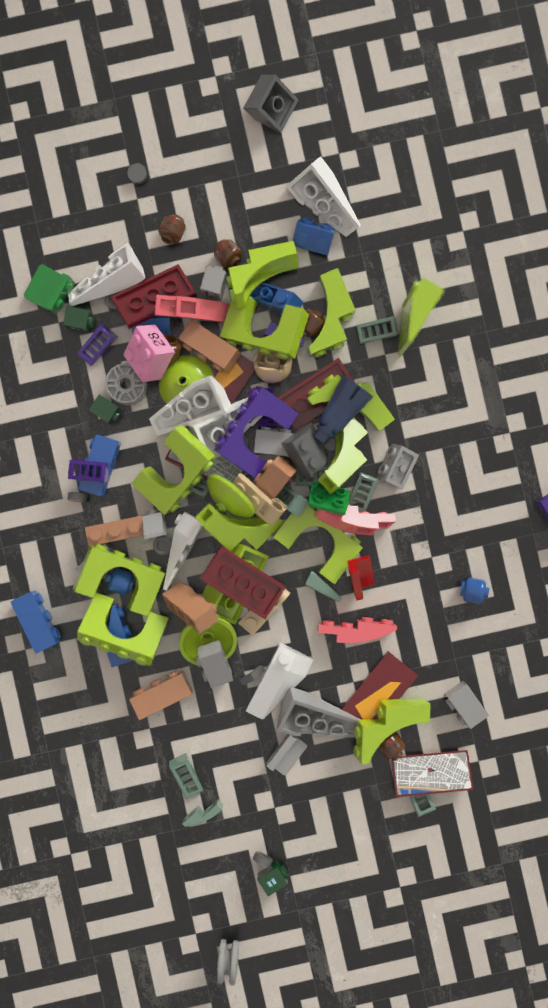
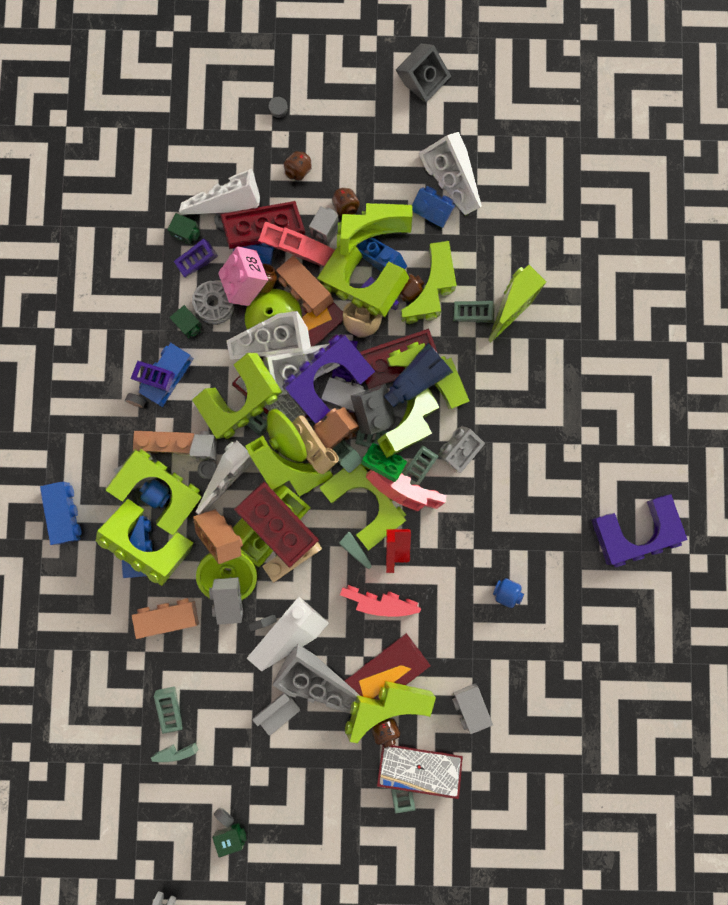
camera: 10 degrees right, 5 degrees down
(49, 289) = (163, 193): green bracket -> none

